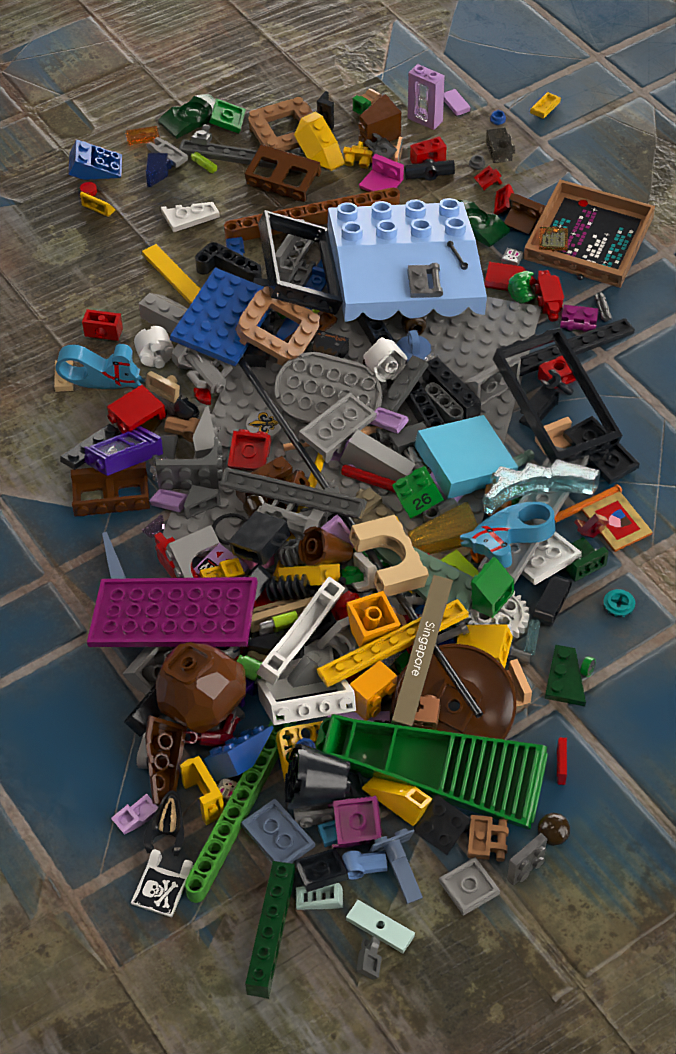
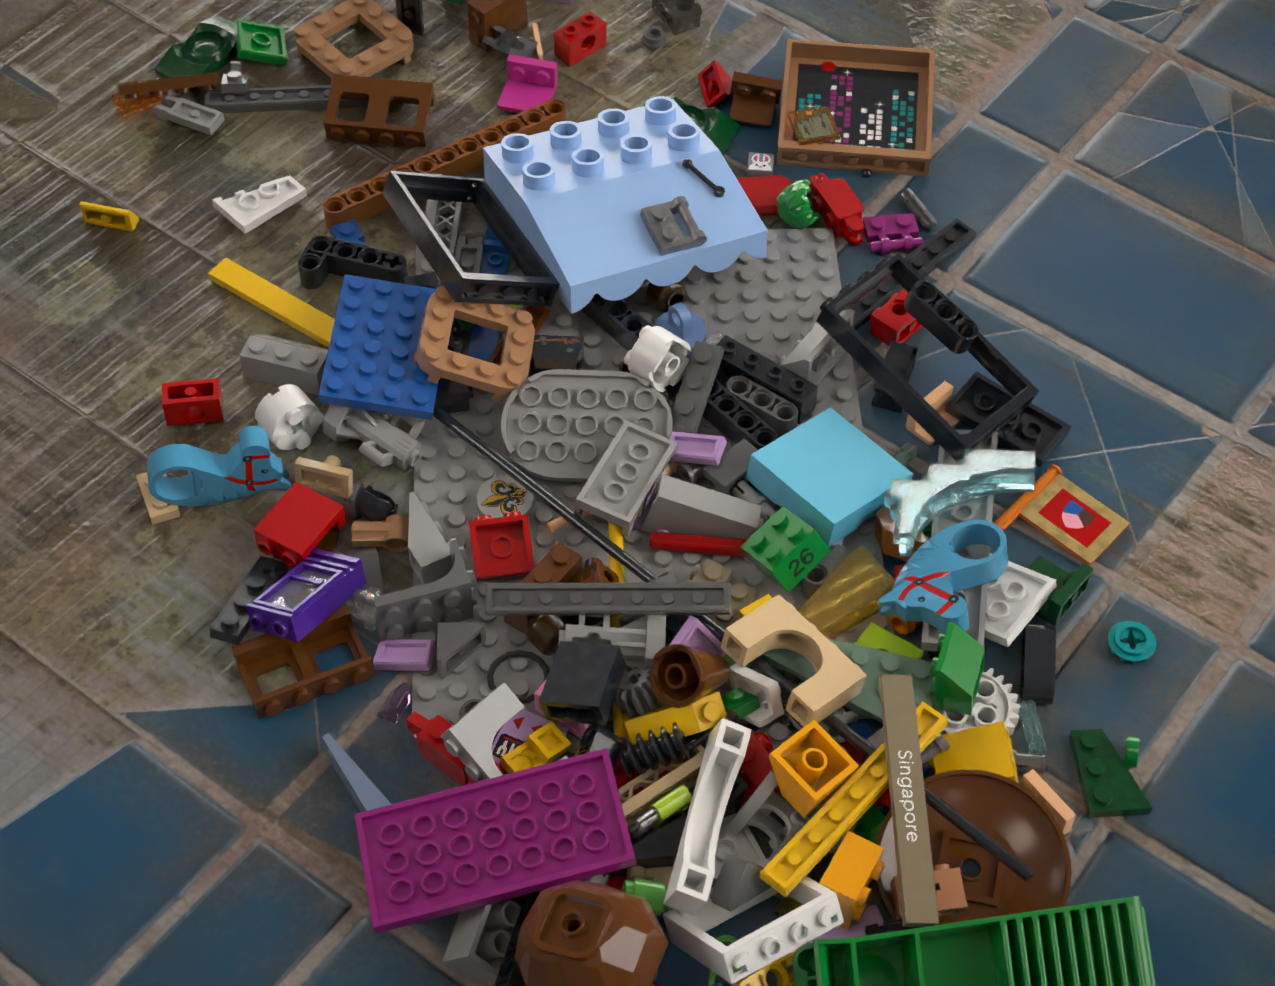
camera: 20 degrees left, 0 degrees up
(89, 188) = (86, 193): red tile -> none
(94, 162) = (79, 152): blue slope -> none
(152, 131) = (179, 84): none -> reddish brown plate
(157, 168) = (183, 141): clear blue slope -> none
(203, 395) = (390, 475): red tile -> none
(204, 162) = (251, 119): lime axle -> none
(318, 141) = (416, 52): yellow wedge -> none
(358, 153) = (479, 60): yellow hips -> none
(429, 169) = (592, 62): black piece -> none
(488, 177) = (679, 57): red bracket -> none
(556, 381) = (908, 334): black piece -> none
(562, 761) = (1160, 910): red tile -> none
(570, 381) = (941, 317): none -> black beam
(593, 526) = (1051, 536): dark red bracket -> none

